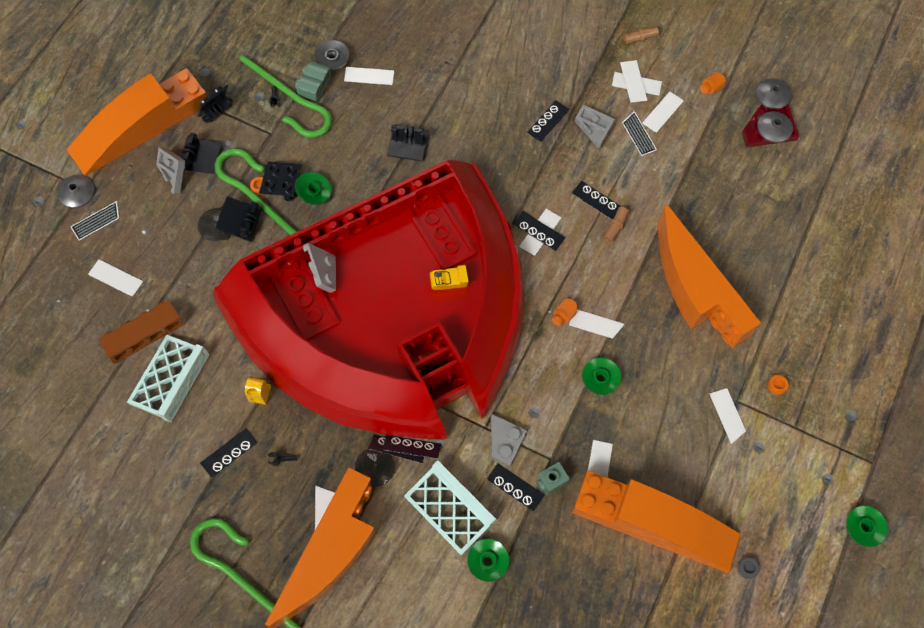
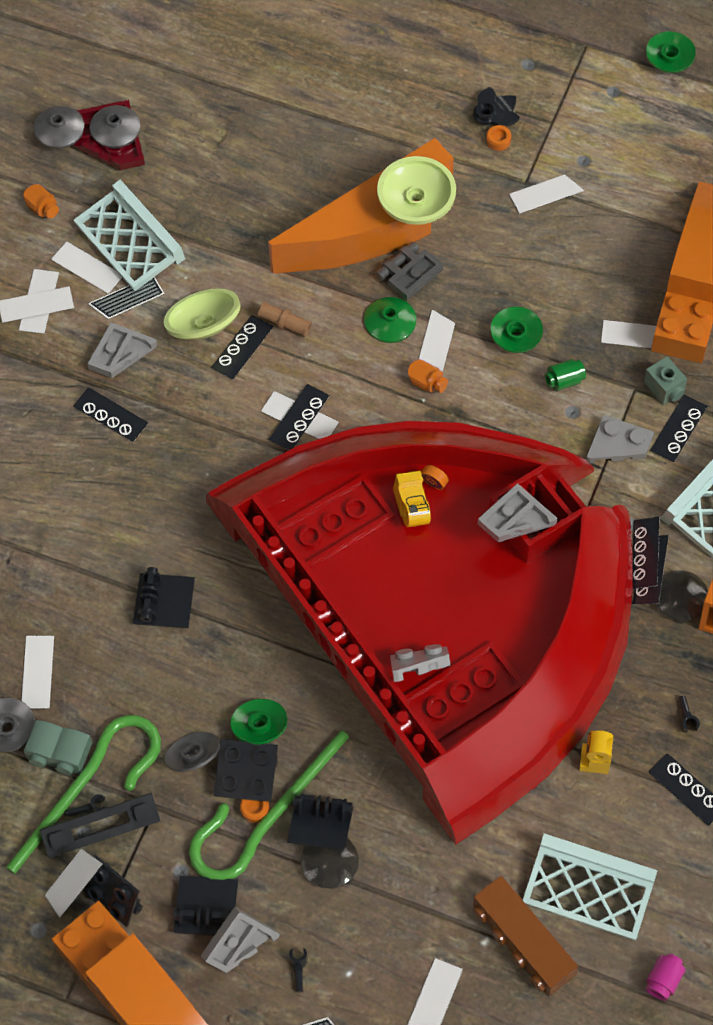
camera: 90 degrees left, 5 degrees down
(95, 415) = (665, 976): none -> dark pink brick
(152, 202) = (298, 965): none -> black hand
(222, 81) = (72, 881): none -> white sticker
(266, 121) = (59, 838): none -> black container
(298, 150) = (192, 751): none -> flat silver dish
(418, 333) = (516, 515): none -> light grey wing
(466, 294) = (434, 477): none -> orange tile
(562, 406) = (565, 374): none -> green brick
(612, 301) = (390, 328): none -> green dish
(617, 170) = (202, 314): none -> yellowish green dish
(652, 312) = (412, 276): none -> dark grey plate
(693, 143) = (149, 227): none -> light aqua fence
(711, 290) = (416, 179): none -> yellowish green dish
(806, 387) = (497, 107): none -> black plate

